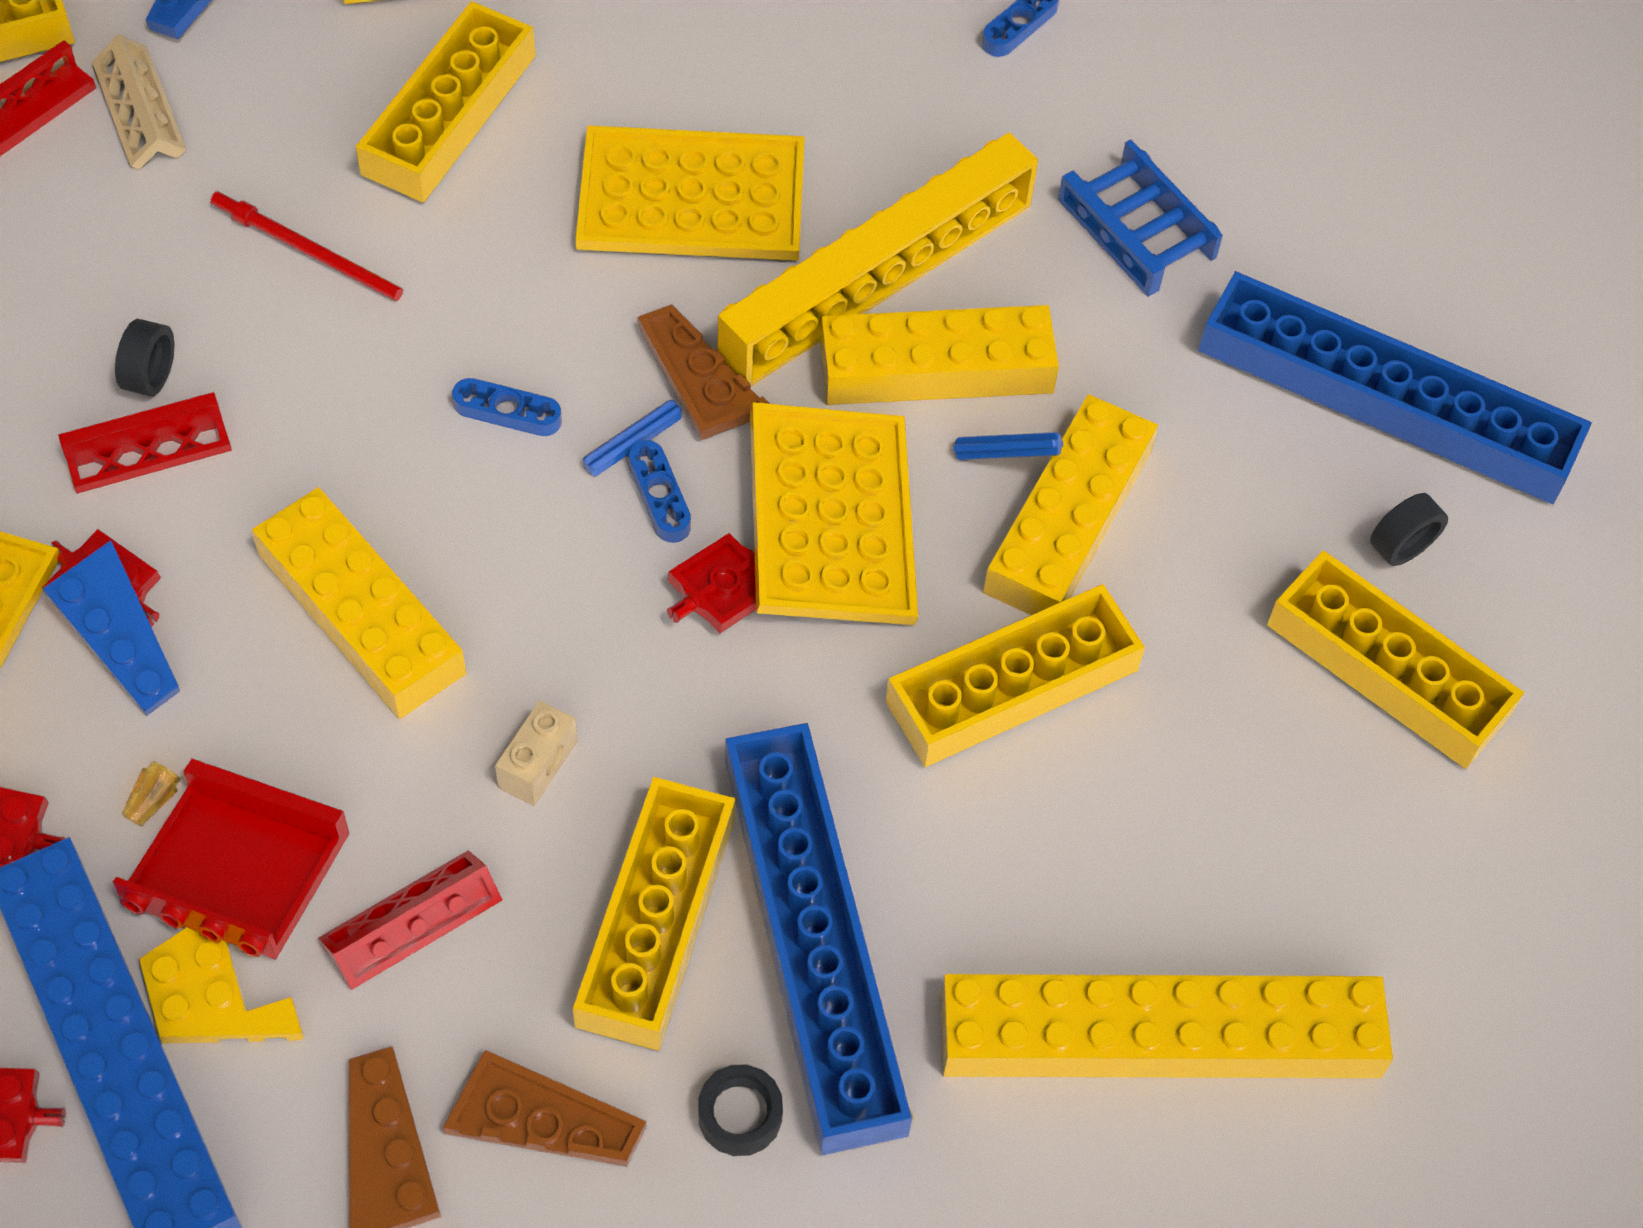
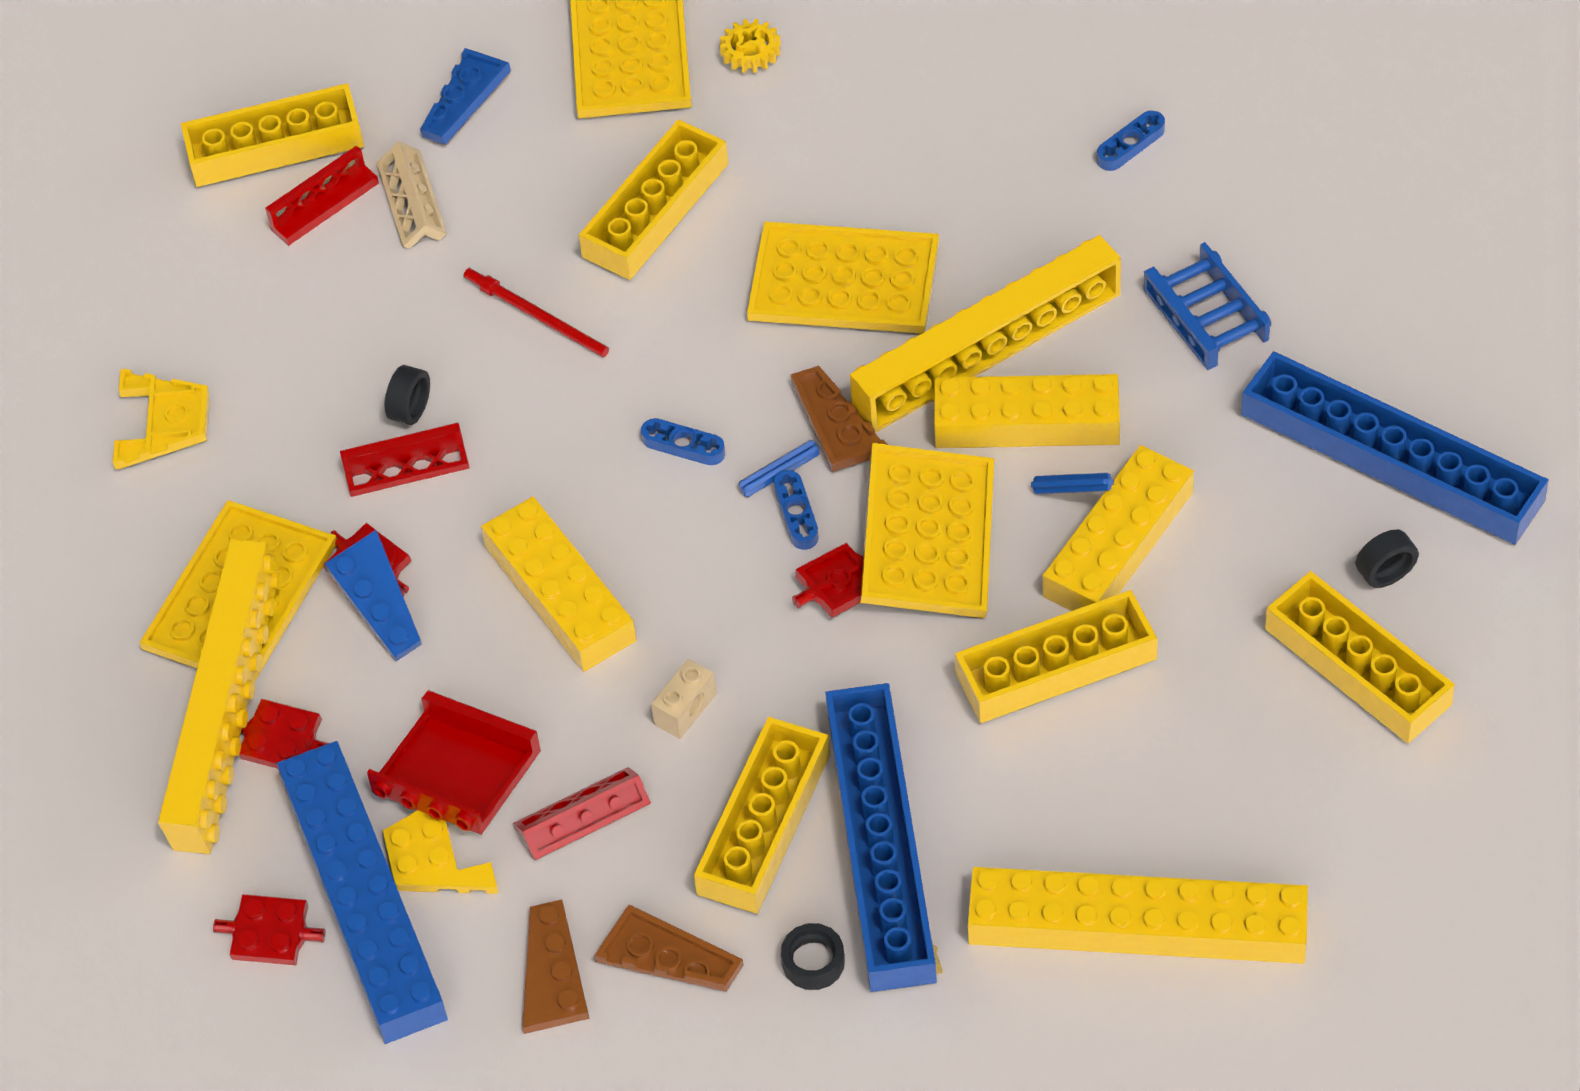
camera: 15 degrees right, 5 degrees down
(151, 791) = (396, 715): clear yellow cone -> none

